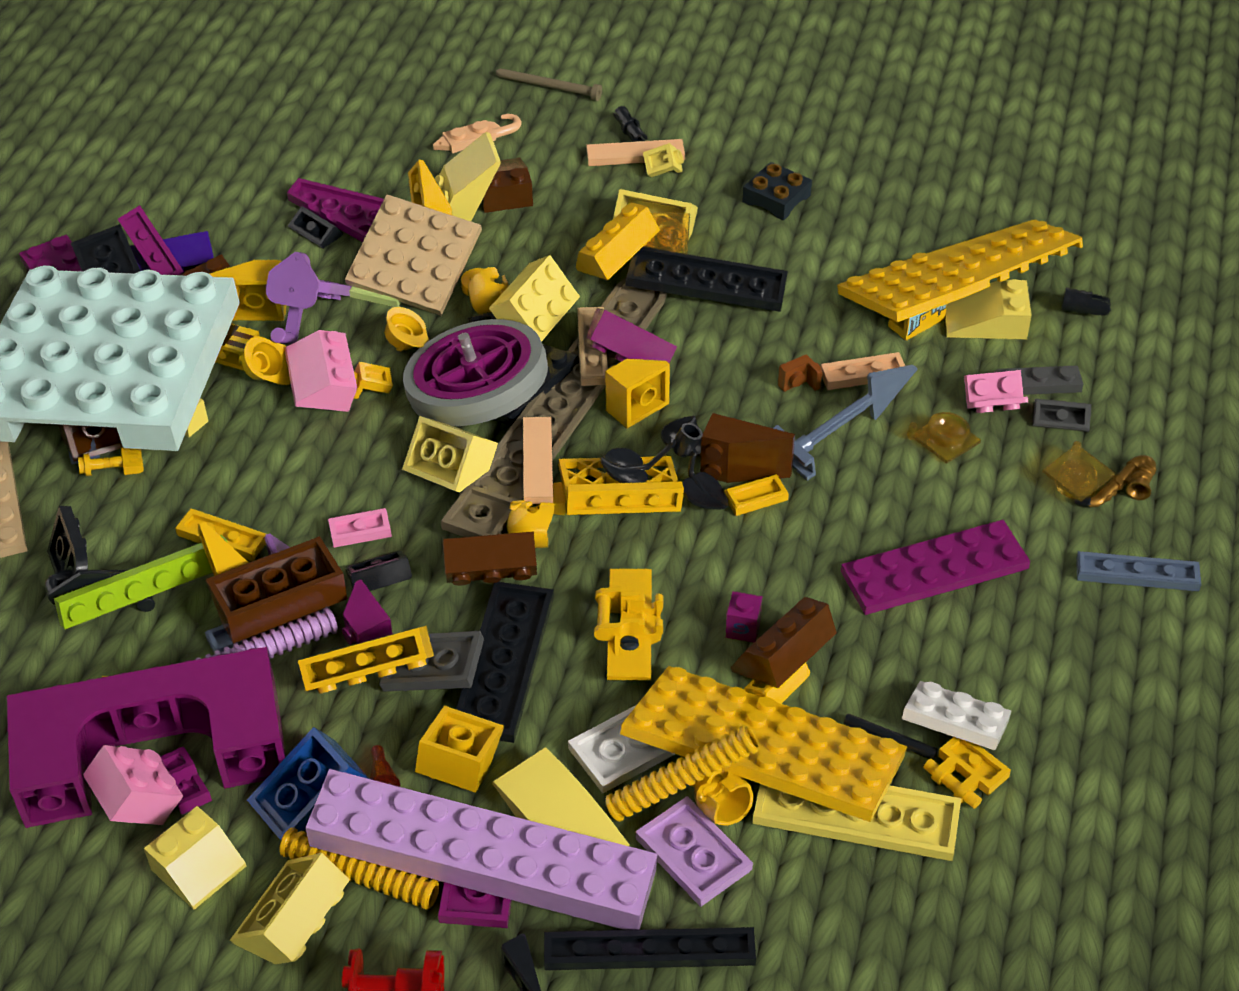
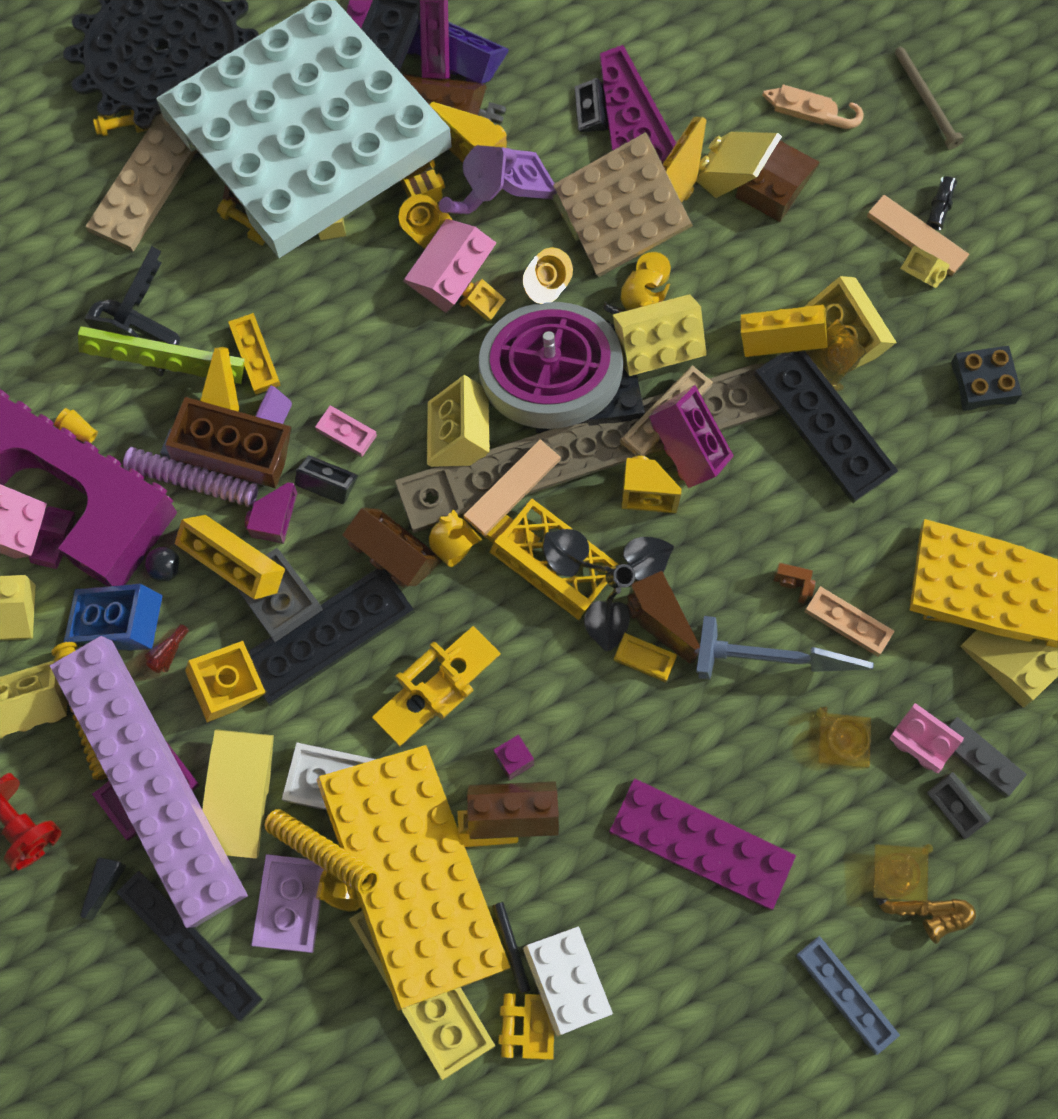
camera: 45 degrees right, 25 degrees up
(306, 715) = (162, 564): none -> black piece

